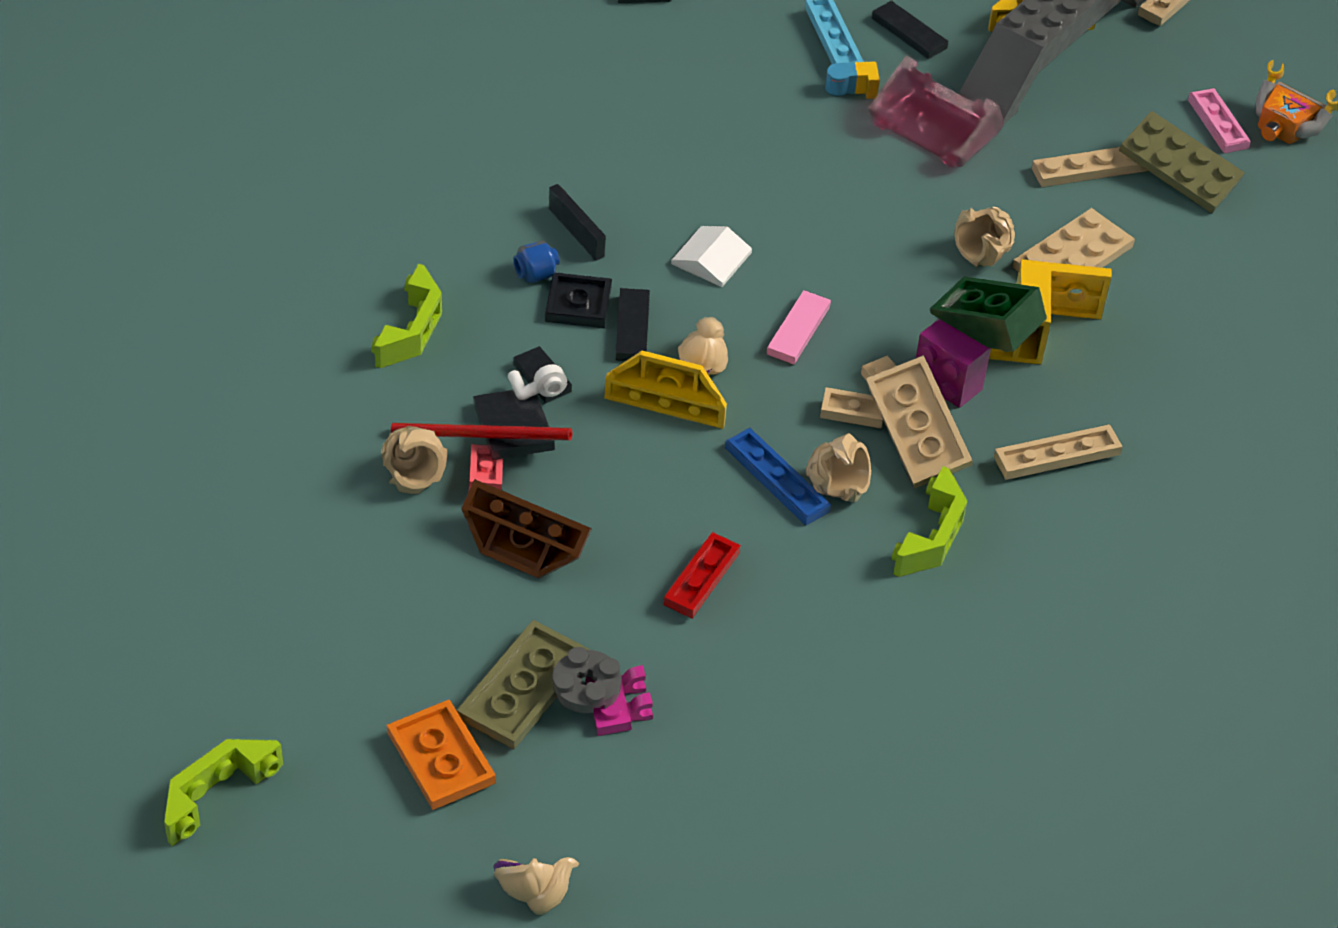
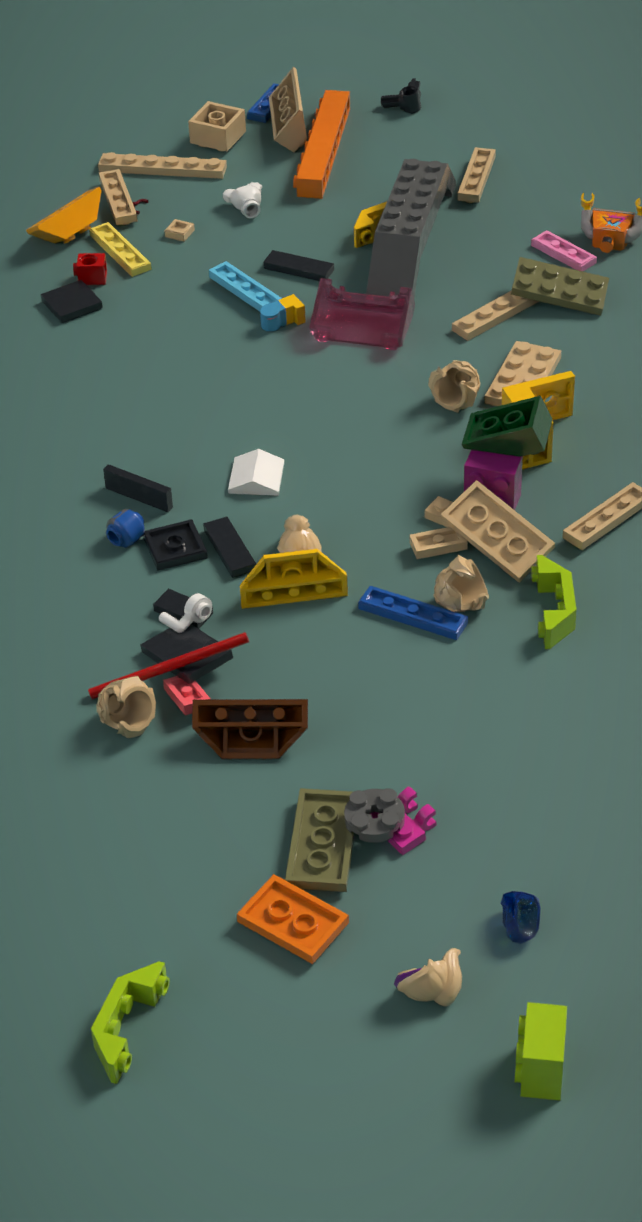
camera: 20 degrees left, 5 degrees down
(401, 344) = (57, 627): lime slope -> none
(668, 854) = (520, 915): none -> clear blue rock
(702, 575) = (406, 705): red plate -> none
(798, 327) = (357, 501): bright pink tile -> none

